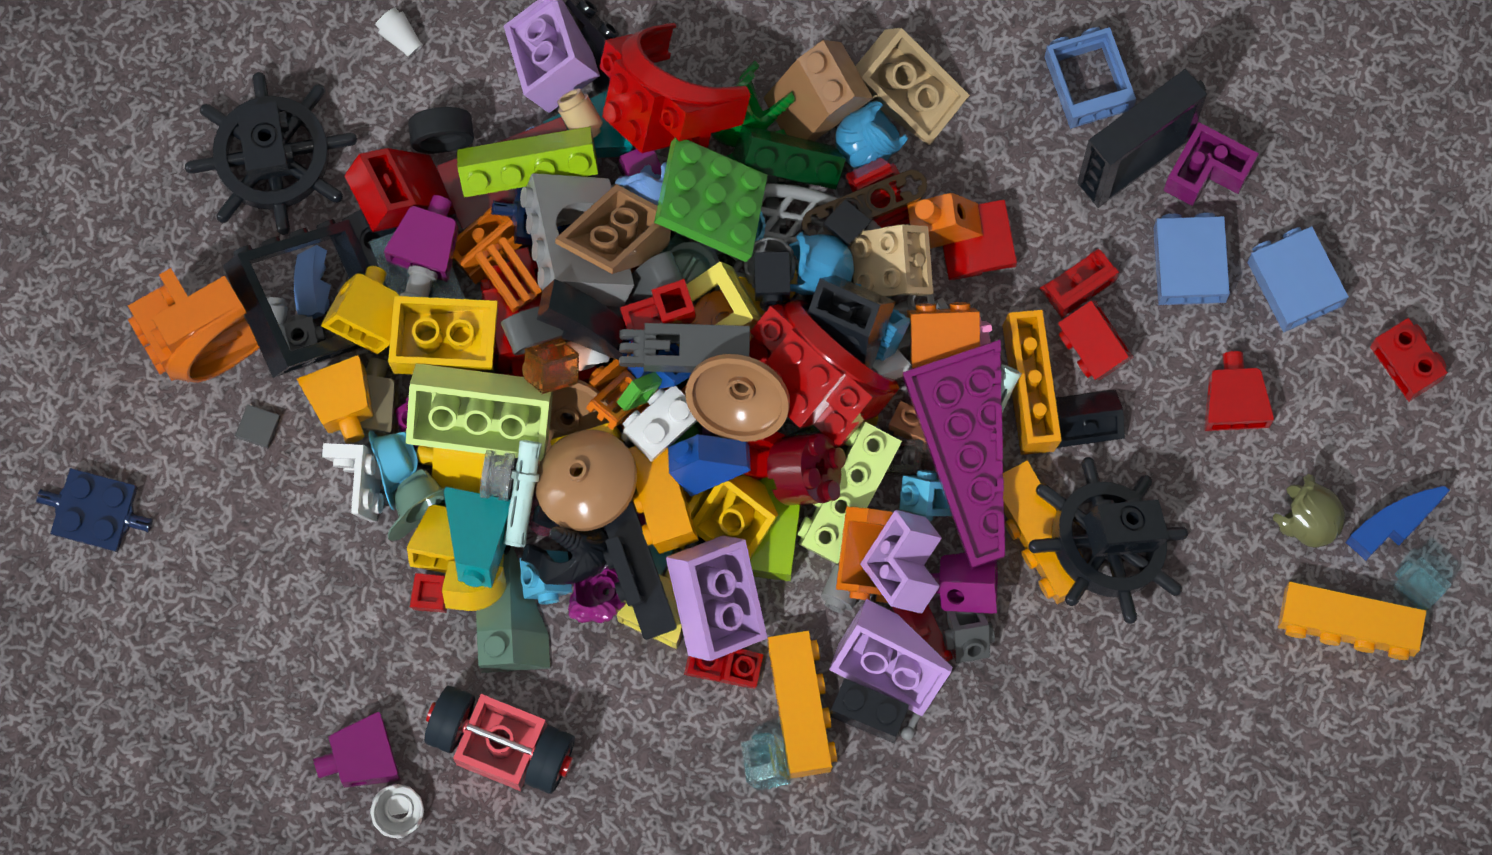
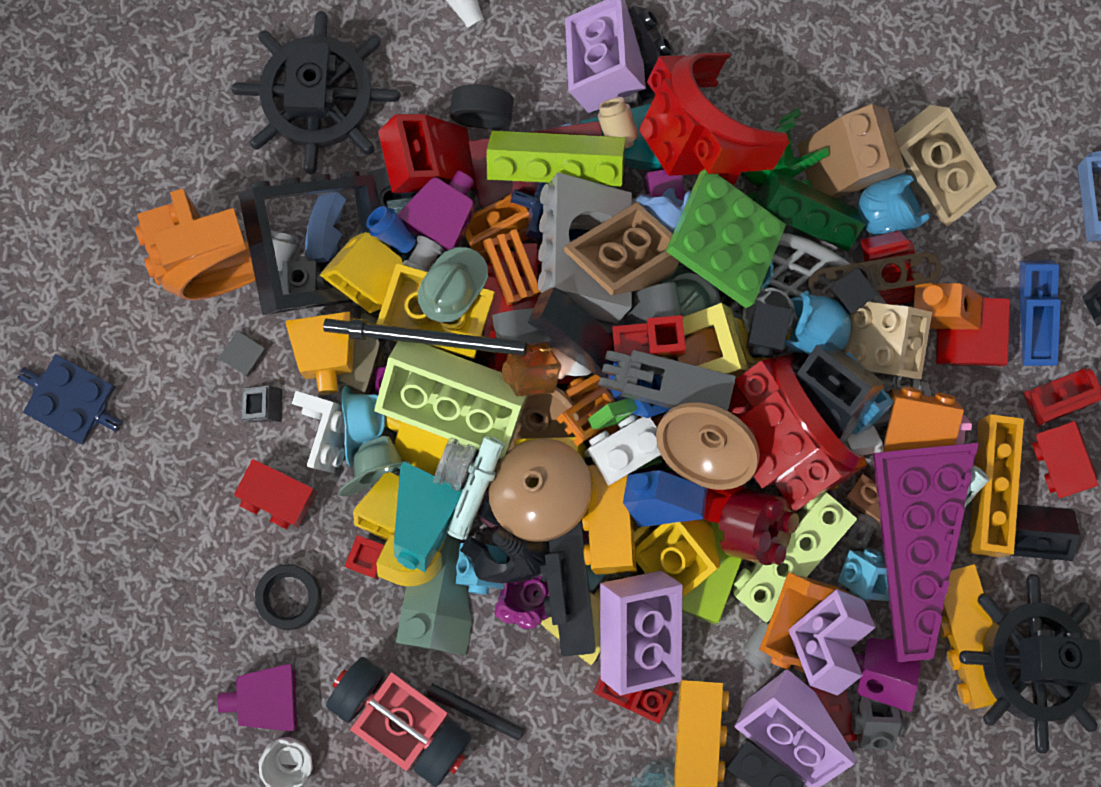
camera: 15 degrees right, 5 degrees up
(288, 471) = (262, 404): none -> black slope
(324, 554) = (275, 494): none -> red brick
(355, 625) = (264, 587): none -> black tyre
(374, 366) = (361, 329): none -> black bar
(379, 265) = (389, 228): none -> blue cone
(454, 303) = (452, 284): none -> sand green piece
(575, 719) = (475, 711): none -> black bar
(1038, 207) = (1039, 312): none -> blue slope

